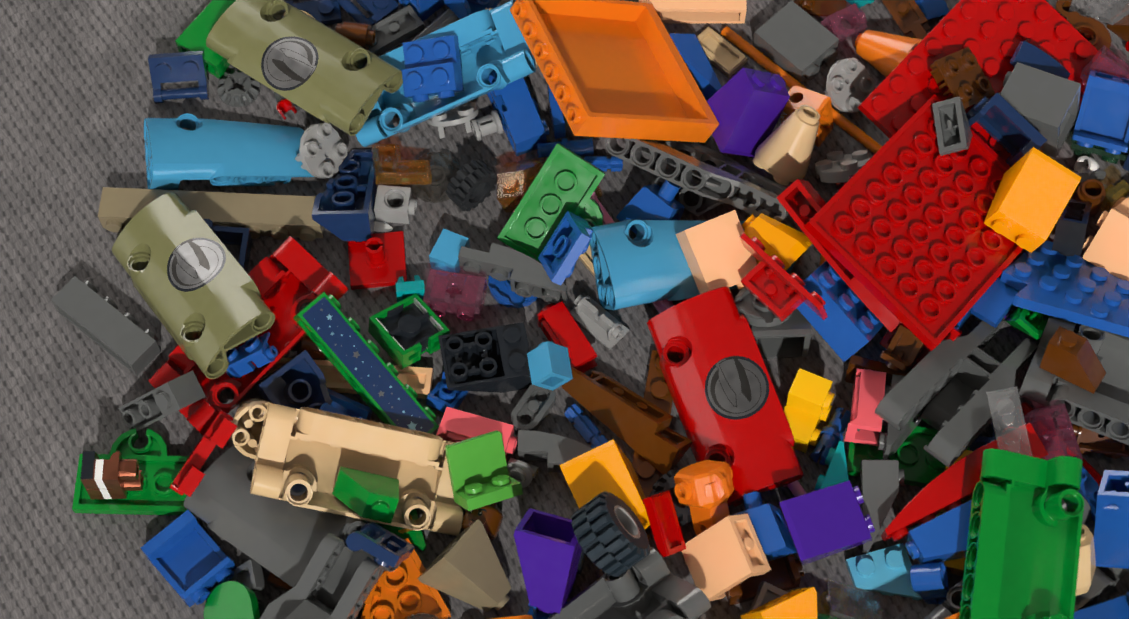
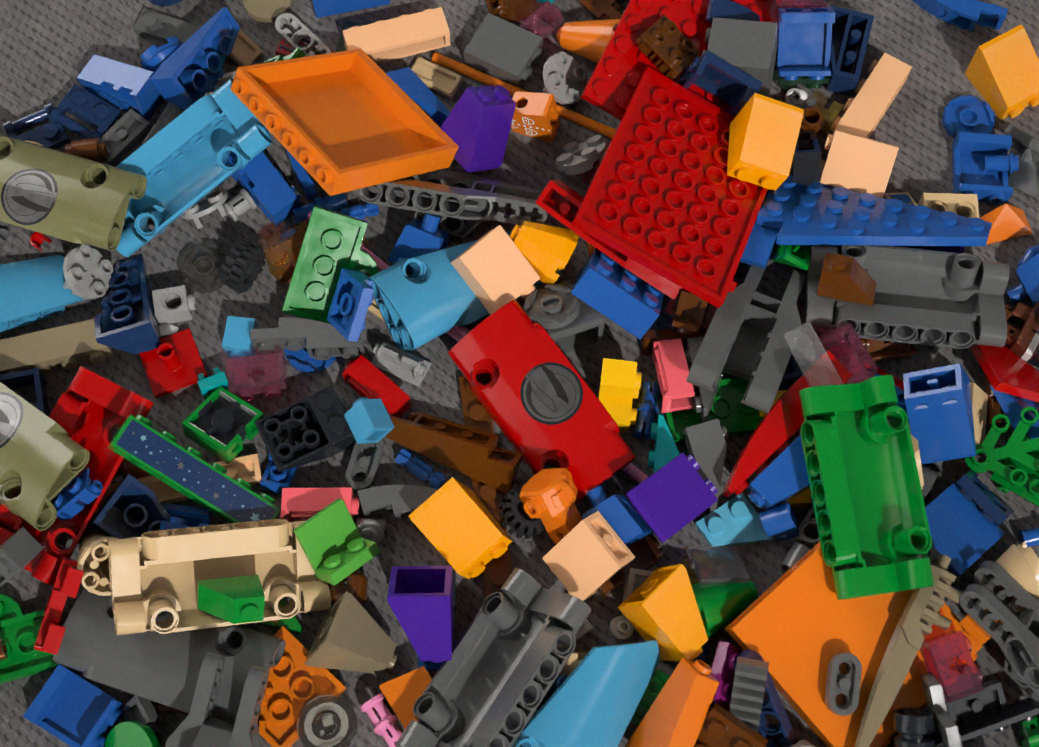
camera: 20 degrees left, 5 degrees up
(382, 544) = (268, 652): dark blue plate -> none
(392, 170) = (160, 272): clear orange tile -> none
(432, 68) = (171, 165): blue plate -> none
(610, 534) = (478, 571): black wheel -> none
(664, 523) = (523, 542): red tile -> none
(775, 286) = (558, 287): red bracket -> none
(790, 146) = (529, 150): tan cone -> none
(951, 126) = (673, 92): dark grey slope -> none

